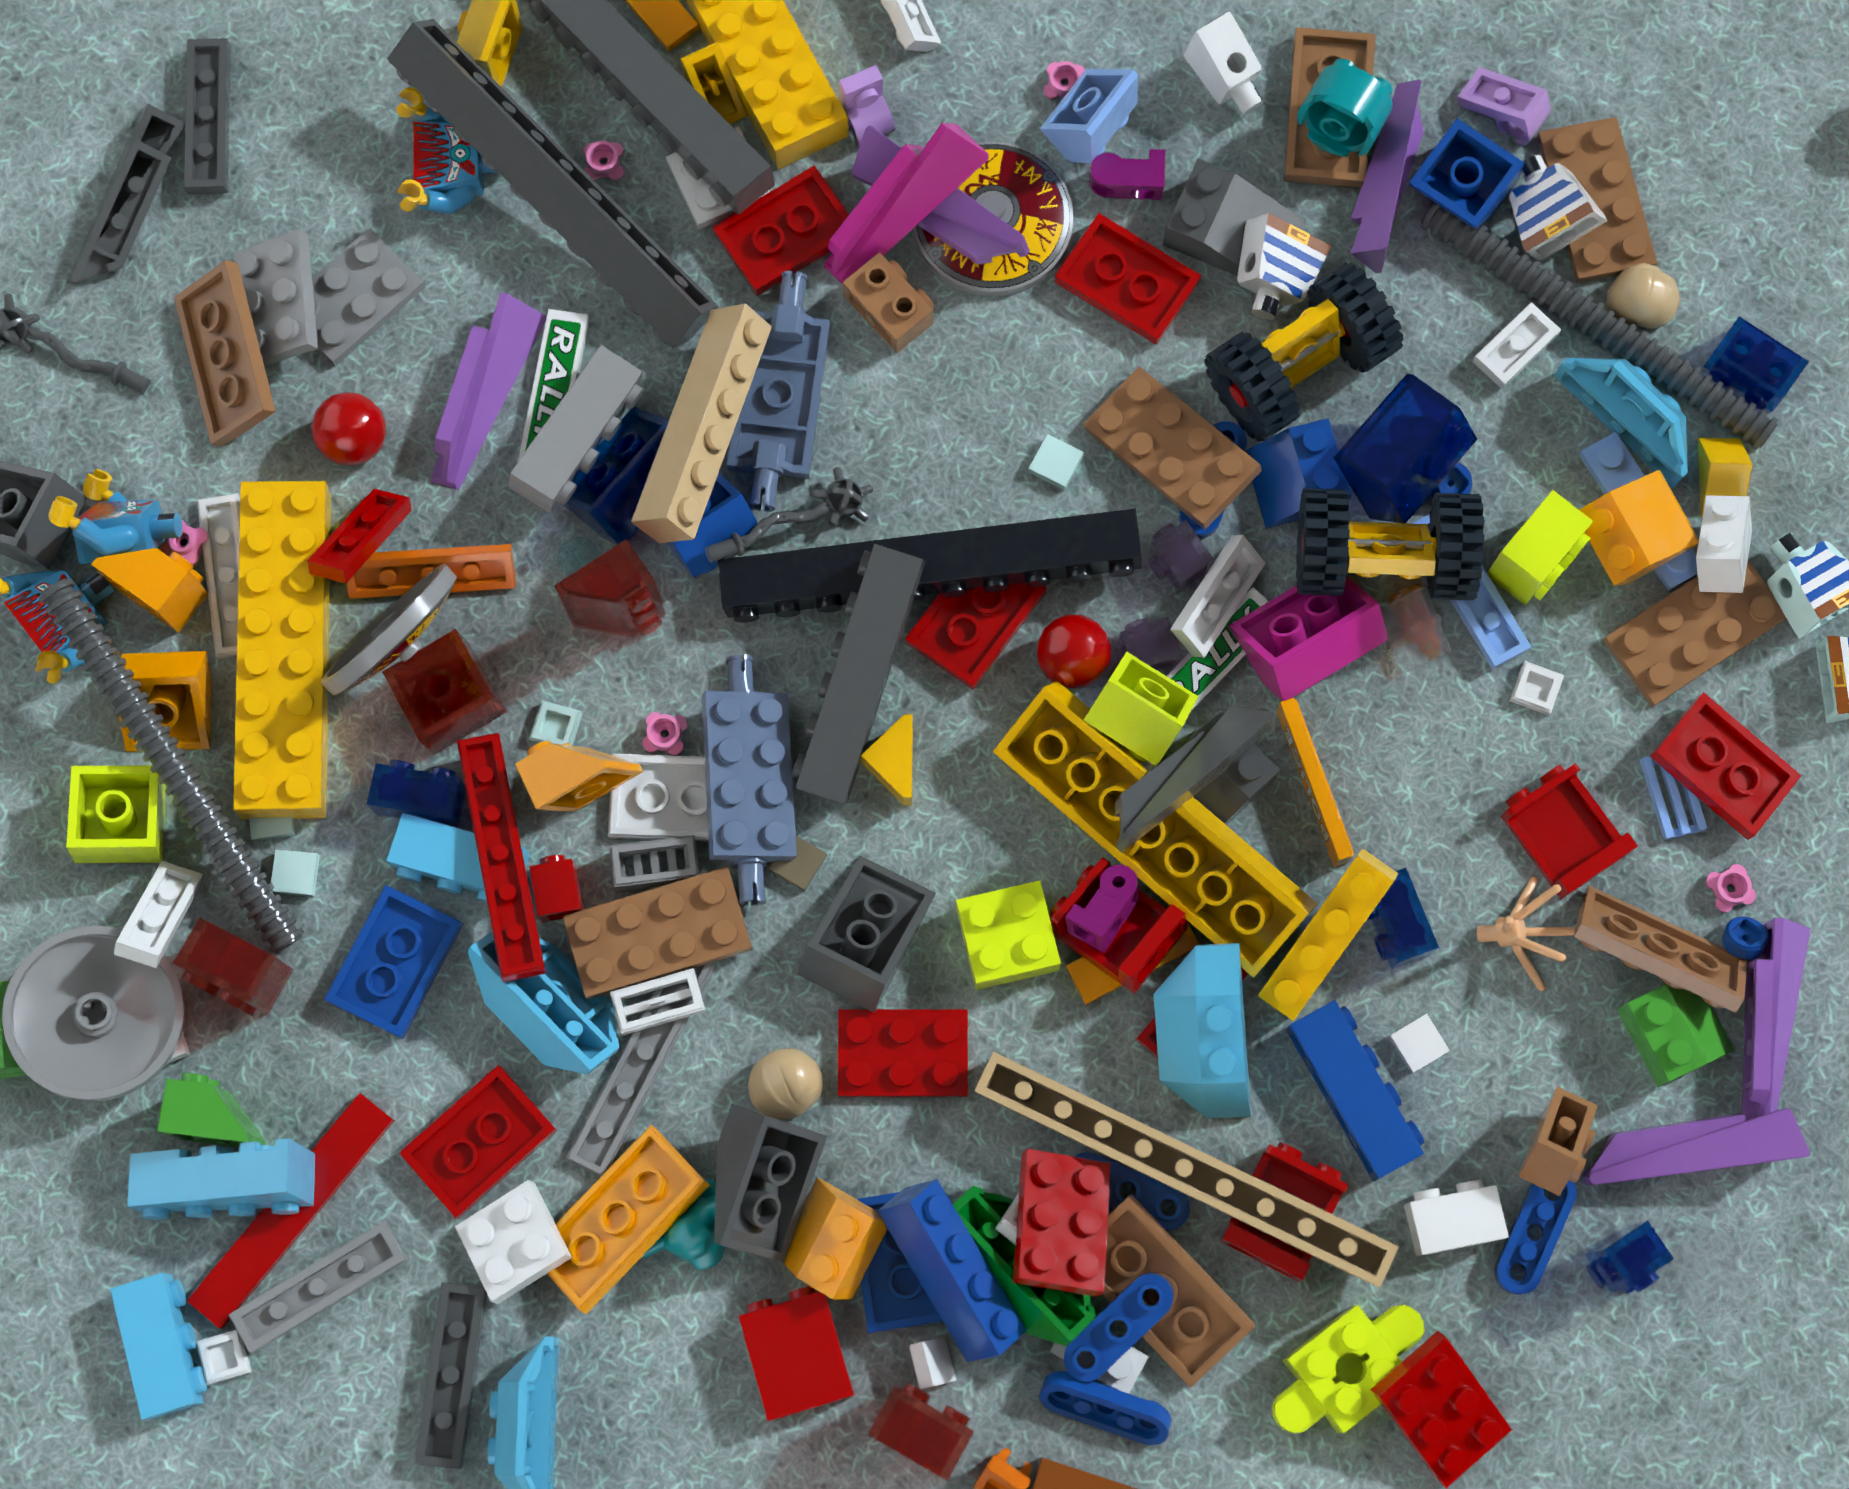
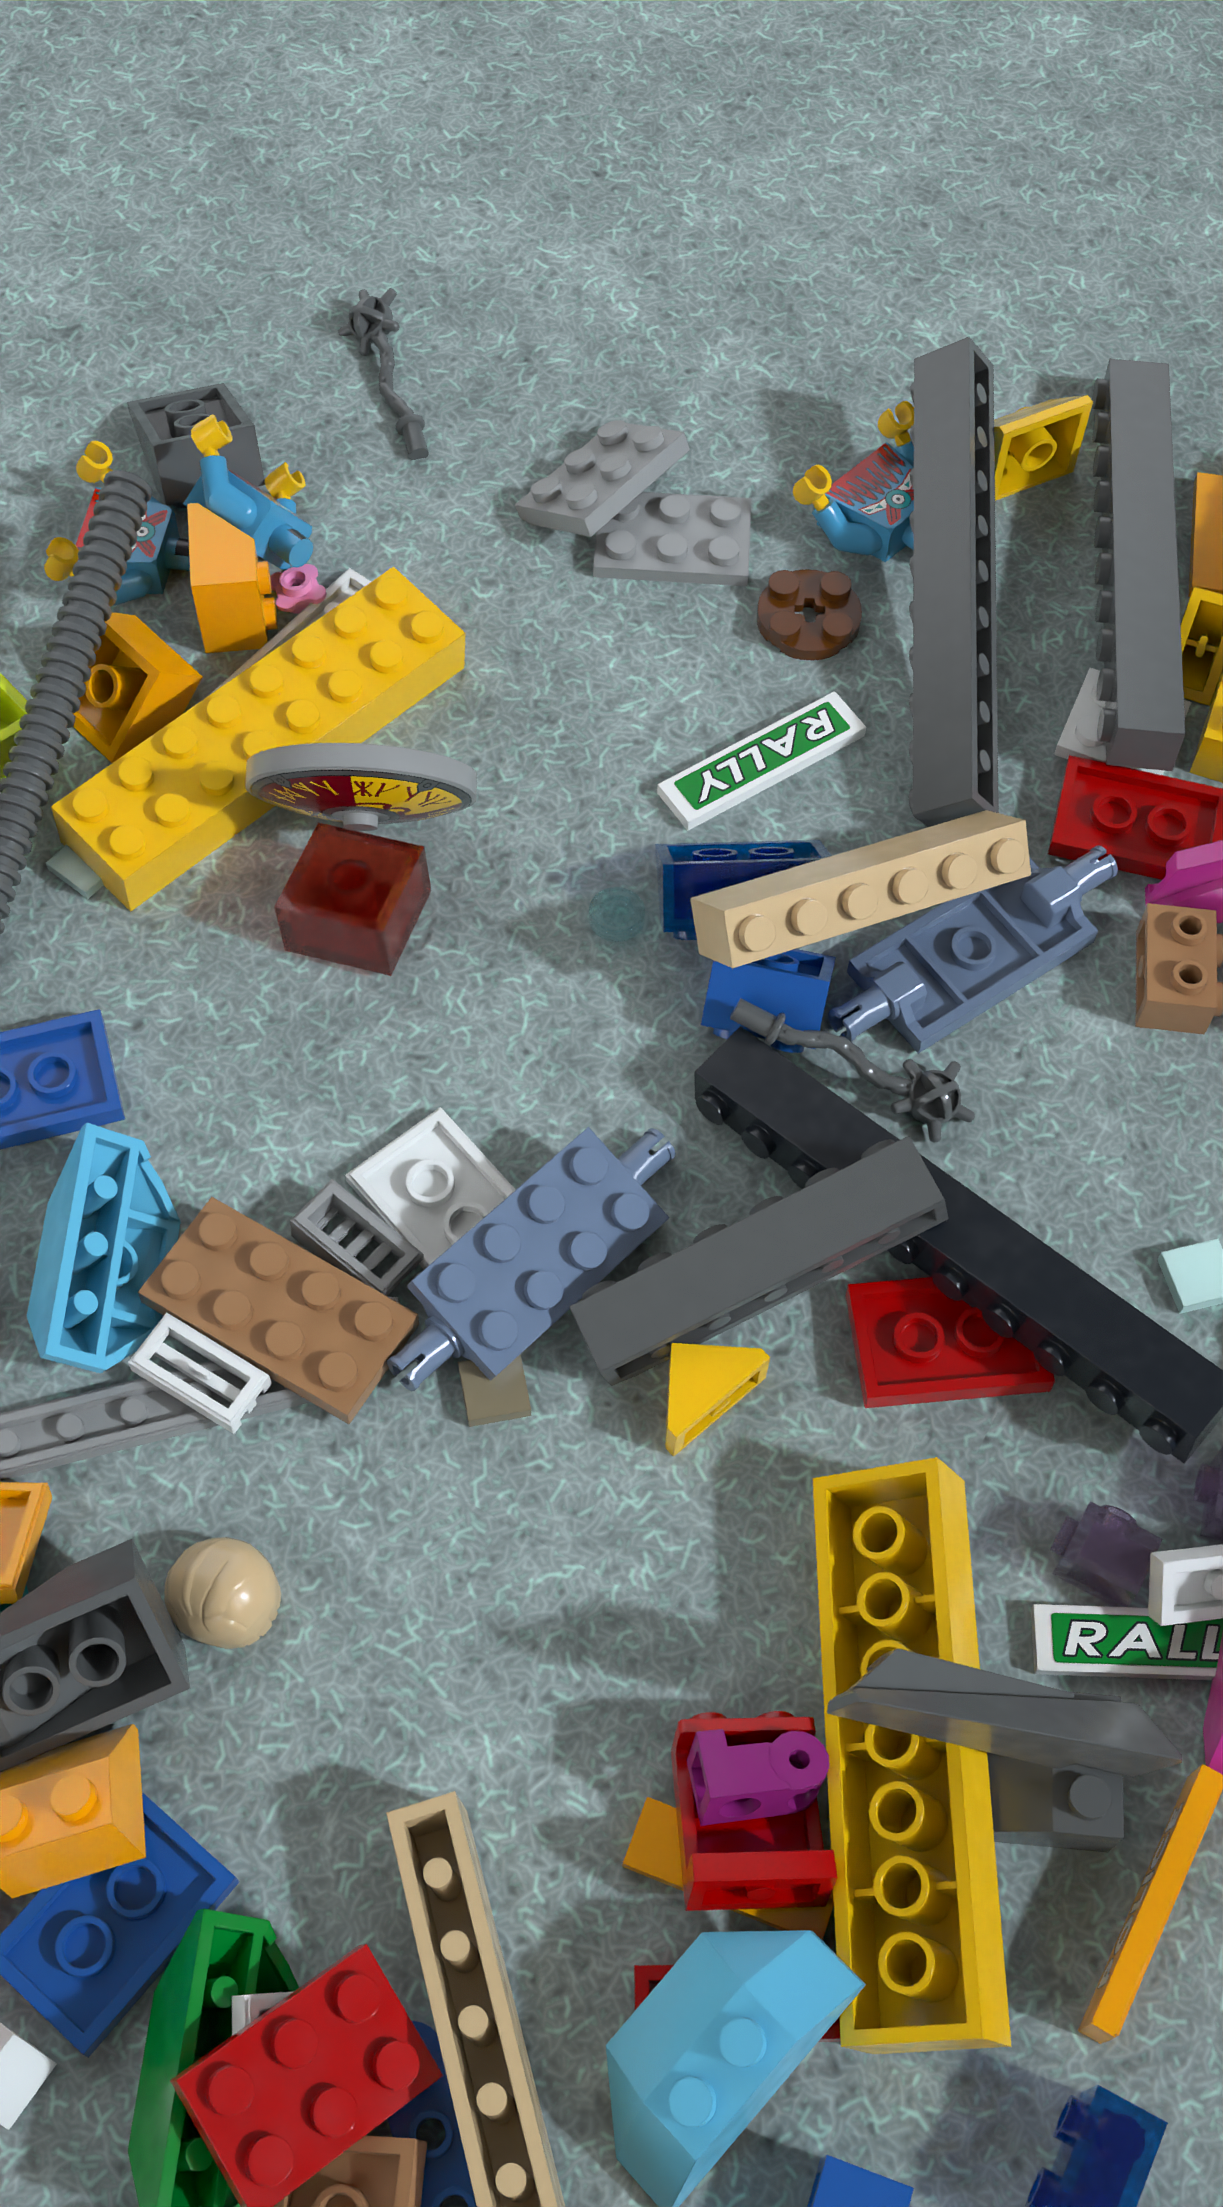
camera: 45 degrees right, 15 degrees down
(128, 195) = (577, 309): dark grey wedge -> none
(207, 116) = (715, 312): dark grey plate -> none
(224, 353) = (509, 477): medium nougat plate -> none
(295, 872) = (44, 926): light aqua tile -> none
(348, 429) = (539, 620): red piece -> none
(359, 535) = (439, 703): red plate -> none
(397, 571) = (497, 817): orange plate -> none
(423, 794) = (223, 961): clear blue brick -> none
(438, 853) = (187, 1054): medium azure brick -> none
(476, 249) = (807, 588): none -> reddish brown plate
(482, 385) = (700, 695): medium lavender wedge -> none
(501, 858) = (213, 1083): red tile -> none
(555, 724) = (419, 1033): light aqua tile -> none
(556, 888) = (239, 1167): red brick -> none
(571, 776) = (369, 1075): light orange slope -> none
(576, 429) = (739, 796): light grey brick -> none
(604, 150) = (1029, 612): bright pink plate -> none
(613, 595) = (600, 949): clear red slope -> none
(656, 724) = (508, 1123): bright pink plate -> none
(865, 934) = (474, 1529): dark grey slope -> none
(902, 1053) = (374, 1697): red plate -> none
(952, 1270) = (132, 1993): blue brick -> none
(1008, 935) = (618, 1691): neon yellow brick -> none
(1073, 651) = (1015, 1471): red piece -> none
(1141, 709) = (1025, 1597): neon yellow brick -> none
(1328, 934) = (986, 2094): yellow brick -> none

